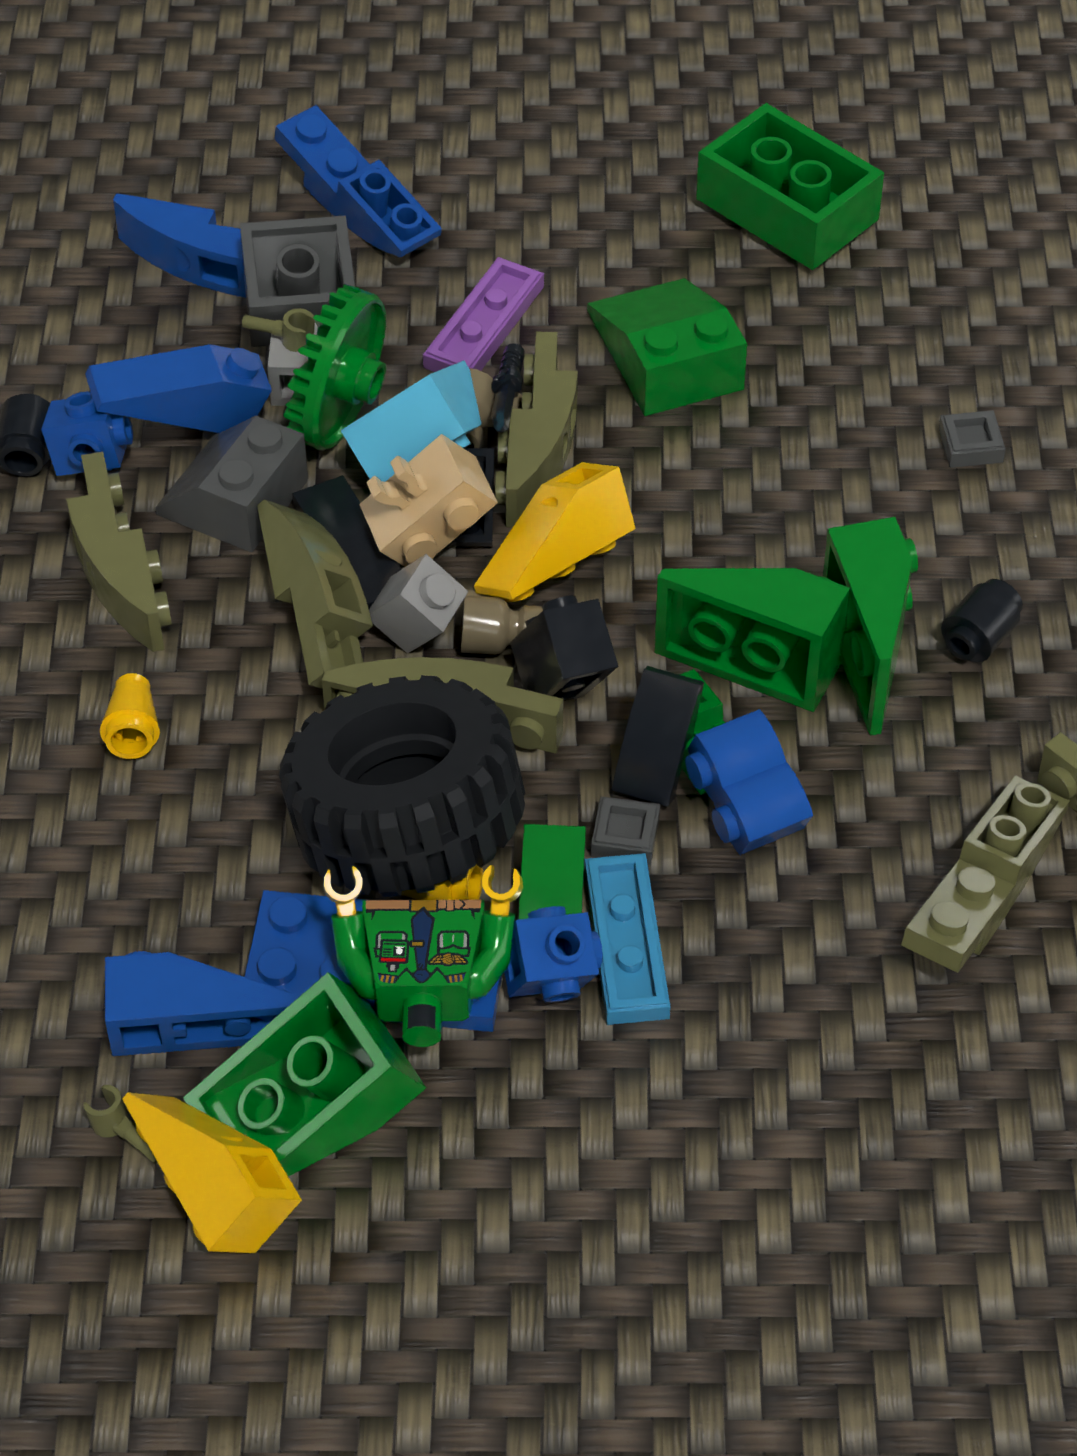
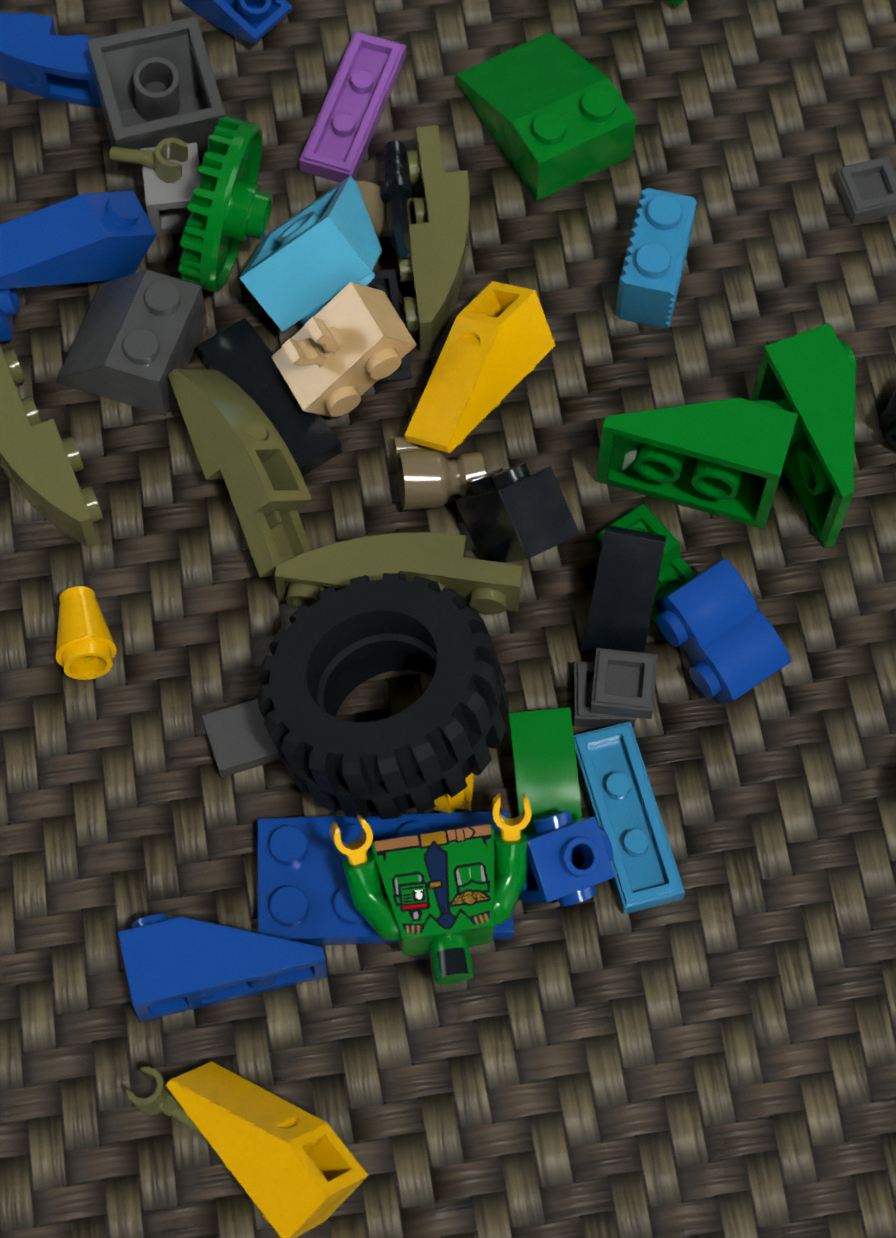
camera: 10 degrees left, 15 degrees up
(261, 824) = (239, 738): none -> dark grey tile
(312, 1078) = (347, 1032): green slope -> none
(417, 603) = (353, 468): light grey brick -> none
(643, 816) = (623, 683): none -> dark grey tile
(746, 466) = (655, 257): none -> dark azure brick

